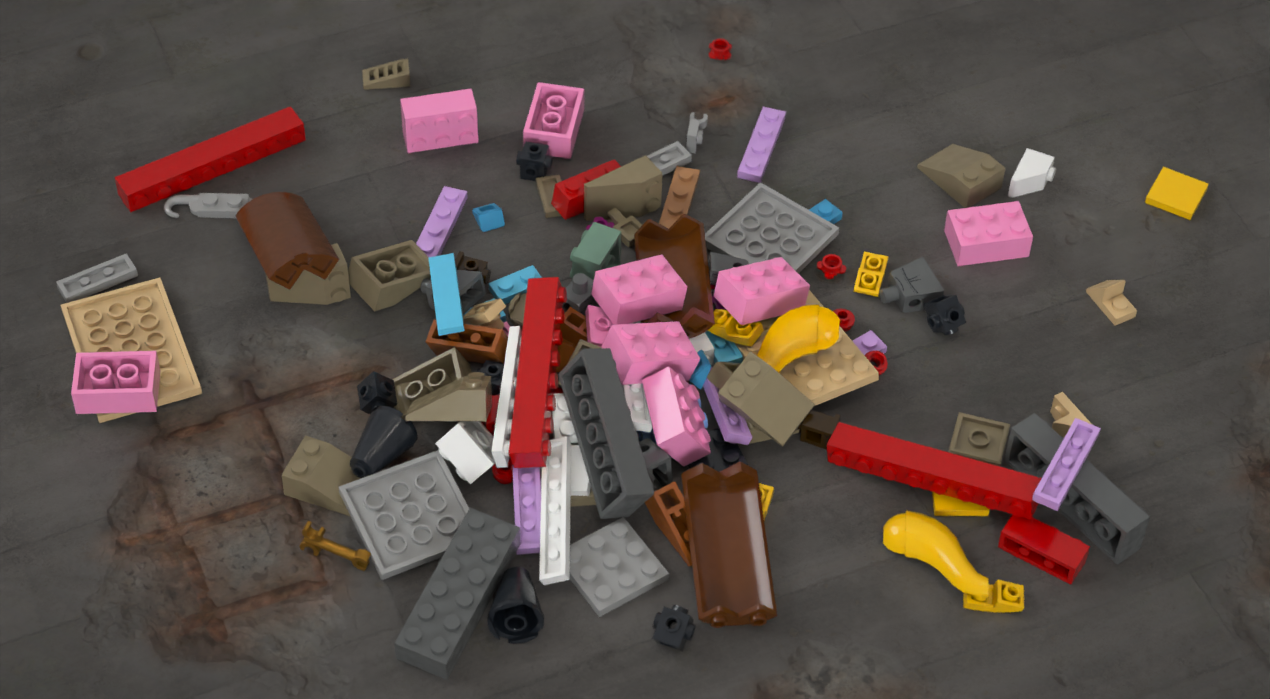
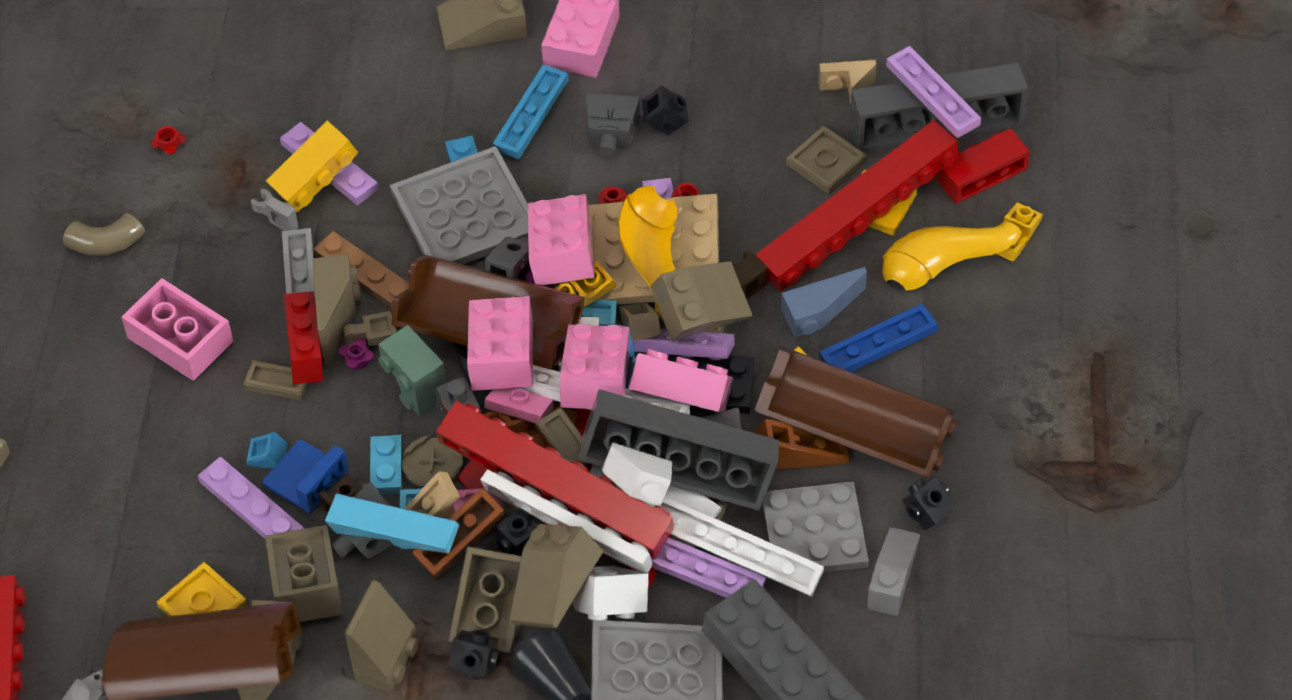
camera: 60 degrees left, 5 degrees up
(349, 231) = (201, 592): none -> yellow tile
(352, 329) = (380, 640): none -> dark tan slope
(439, 120) = (106, 437): bright pink brick -> none
(479, 242) = (306, 473): none -> blue bracket
(516, 608) = (834, 628): black cone -> none
(534, 161) = (223, 373): black brick -> none
(565, 416) = (638, 473): none -> white slope
(598, 629) = (892, 571): none -> light grey slope
(608, 53) = (103, 240): none -> dark tan cylinder
(742, 130) = (312, 166): none -> yellow brick
(816, 540) = (881, 339): none -> blue plate
(828, 487) = (816, 304): none -> sand blue slope
(831, 266) = (539, 171): red plate -> none
(871, 274) = (567, 151): yellow slope -> none
(890, 237) = (531, 111): none -> dark azure plate

